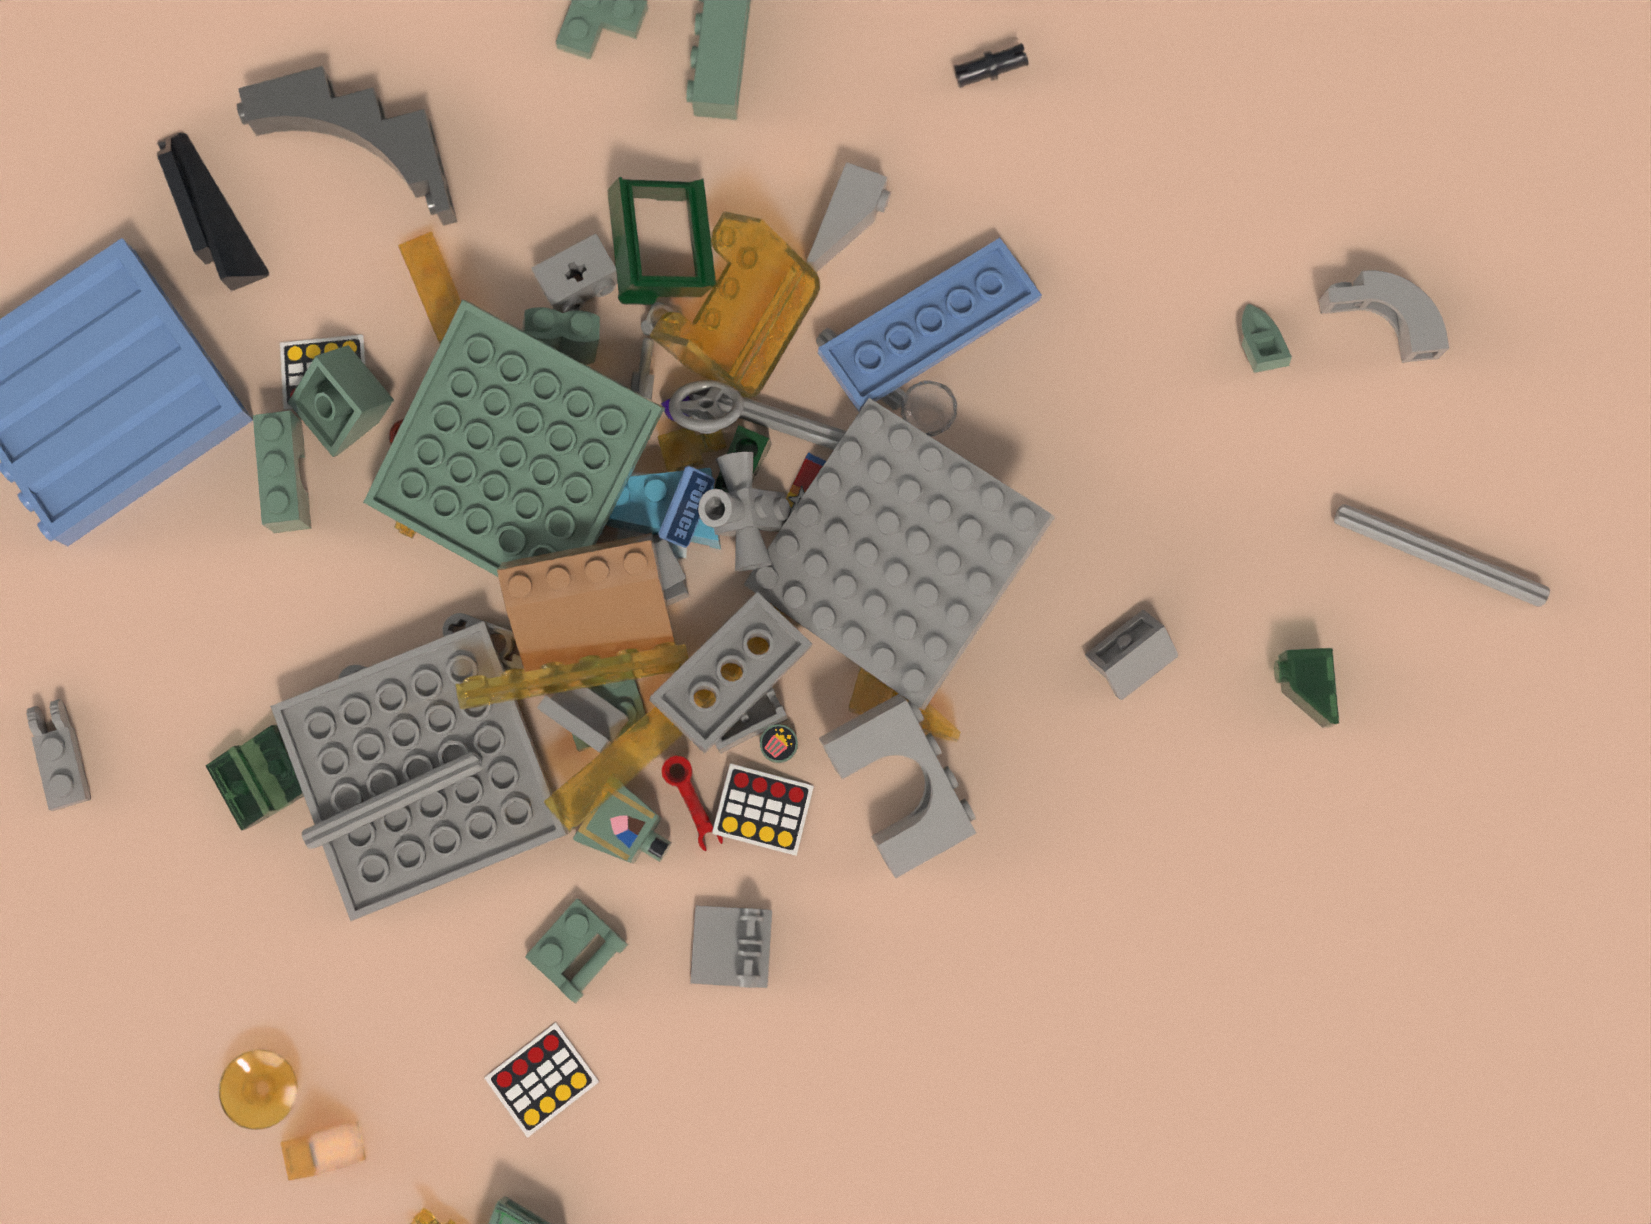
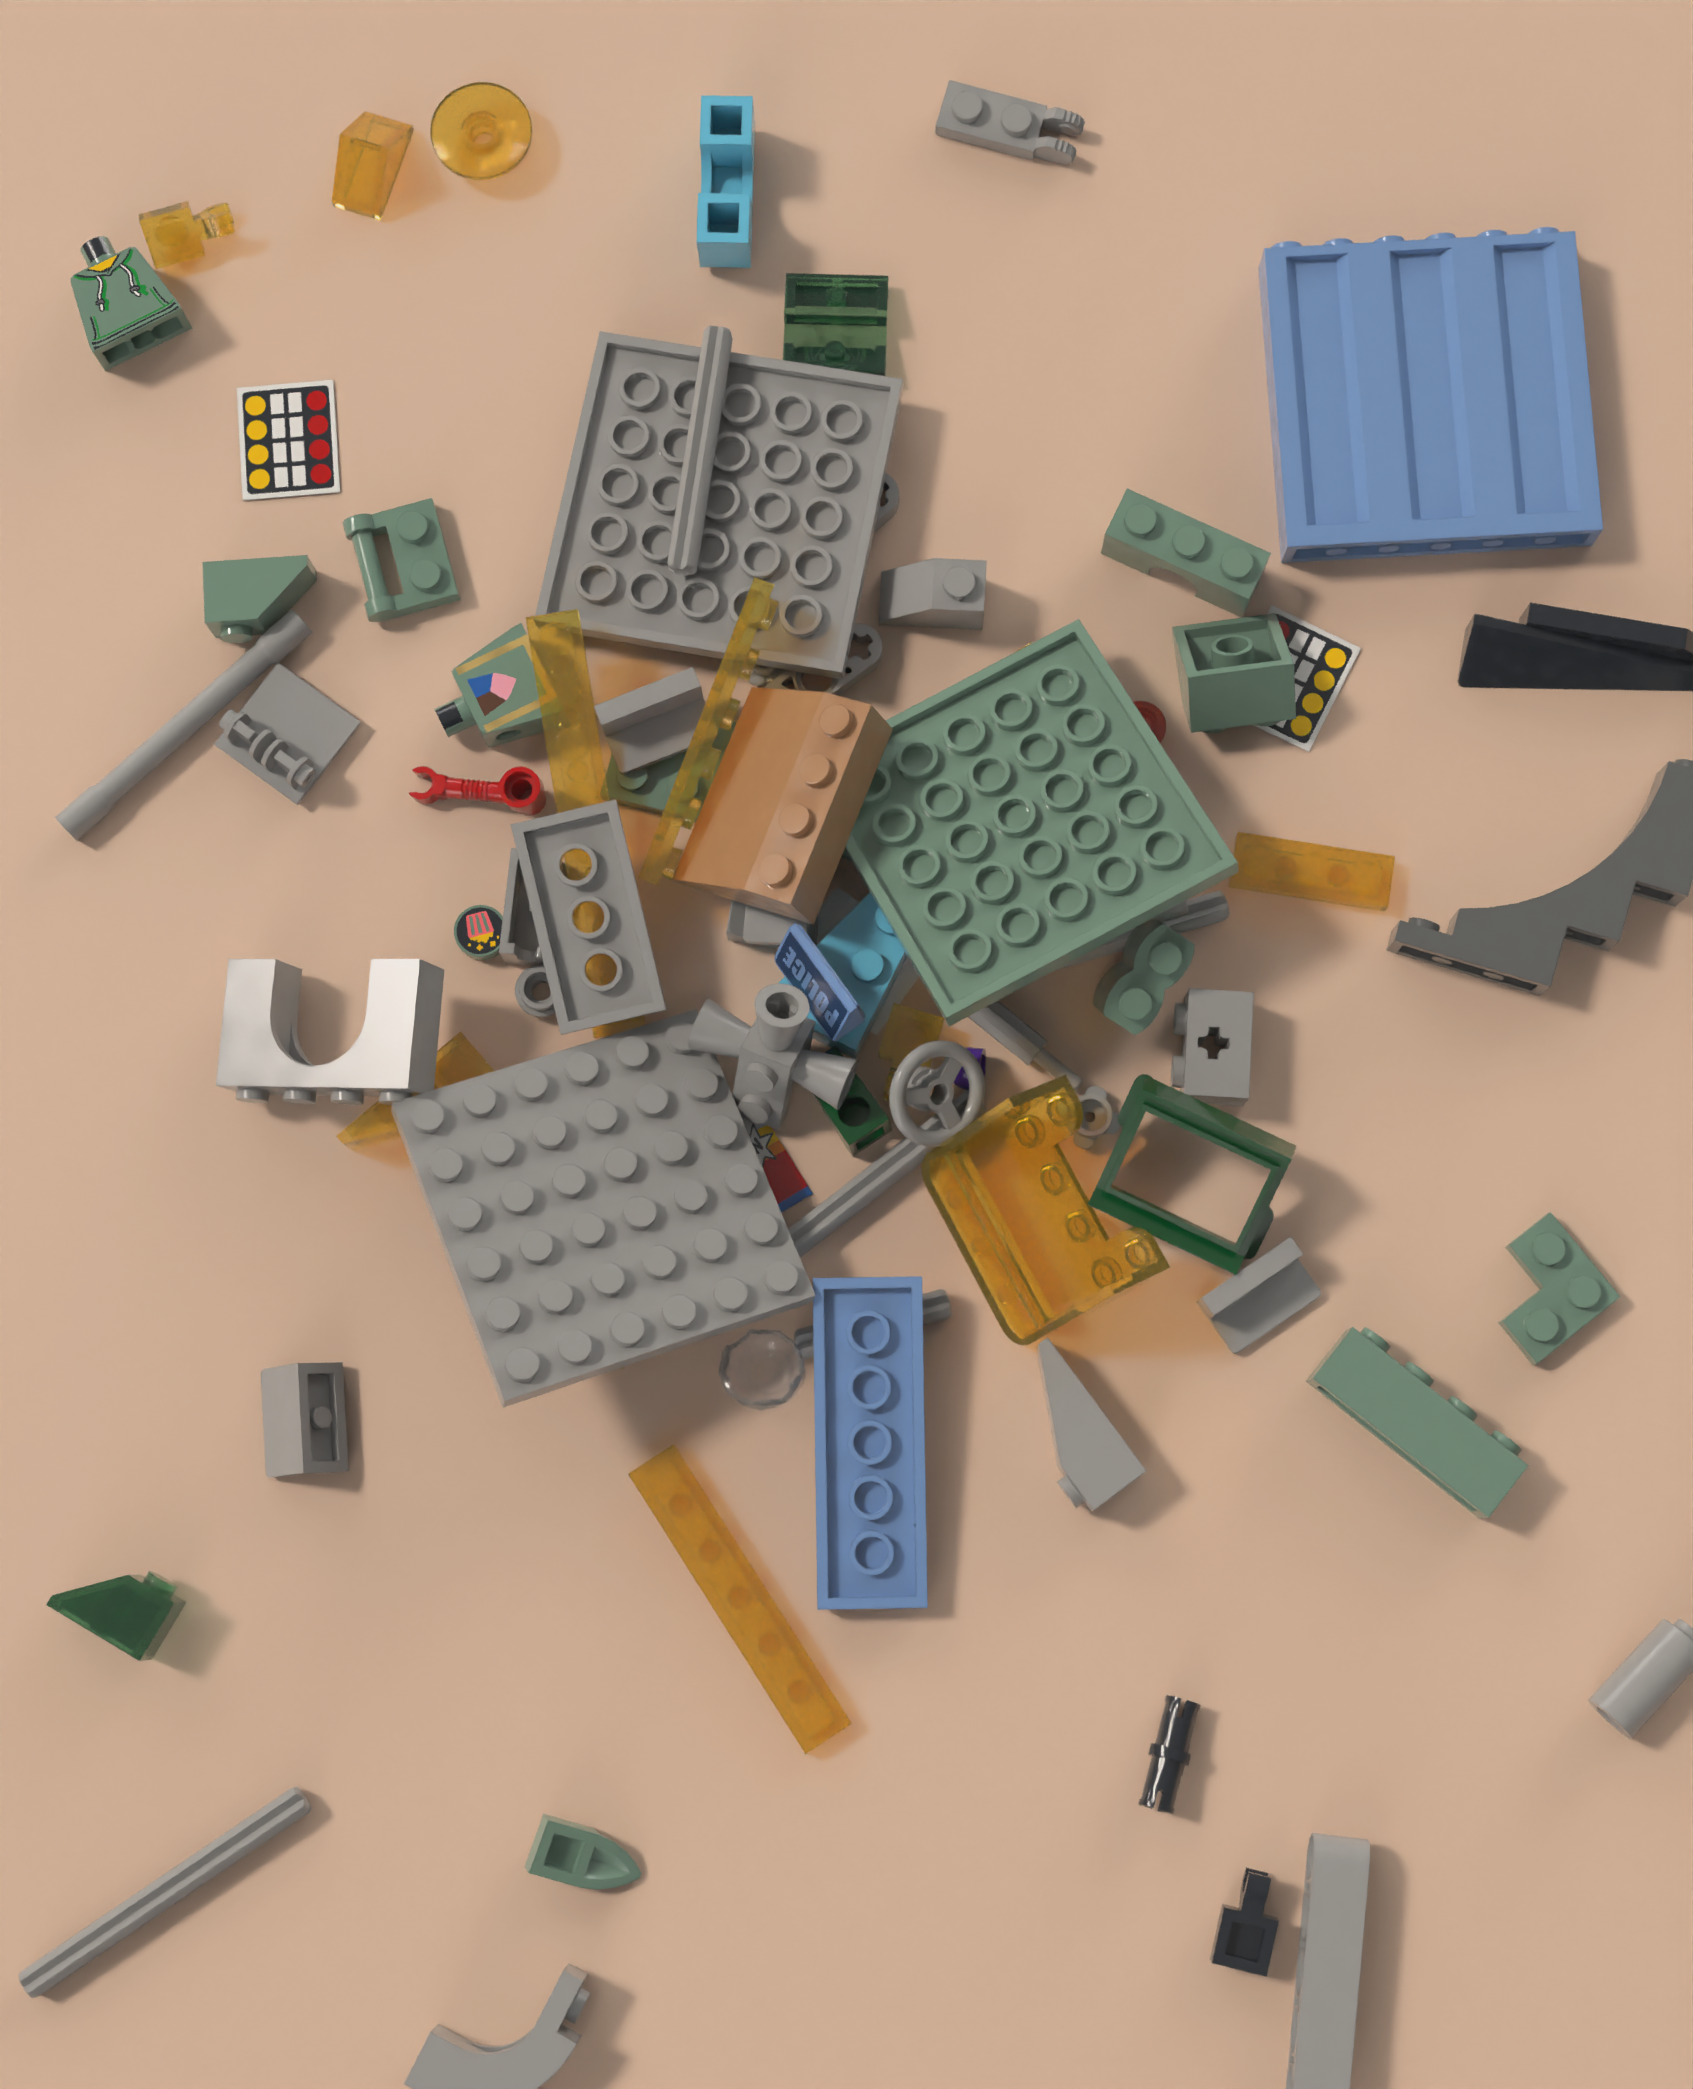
camera: 125 degrees right, 0 degrees up
(186, 914) = (726, 181): none -> medium azure arch
(398, 605) = (934, 594): none -> light grey slope
(658, 1027) = (252, 594): none -> sand green slope
(695, 162) = (1260, 1296): none -> light grey panel
(763, 809) = (417, 866): sticker -> none
(802, 689) = (524, 992): none -> light grey plate
(844, 1035) = (100, 798): none -> light grey piece
(1063, 346) = (740, 1599): none -> clear yellow plate

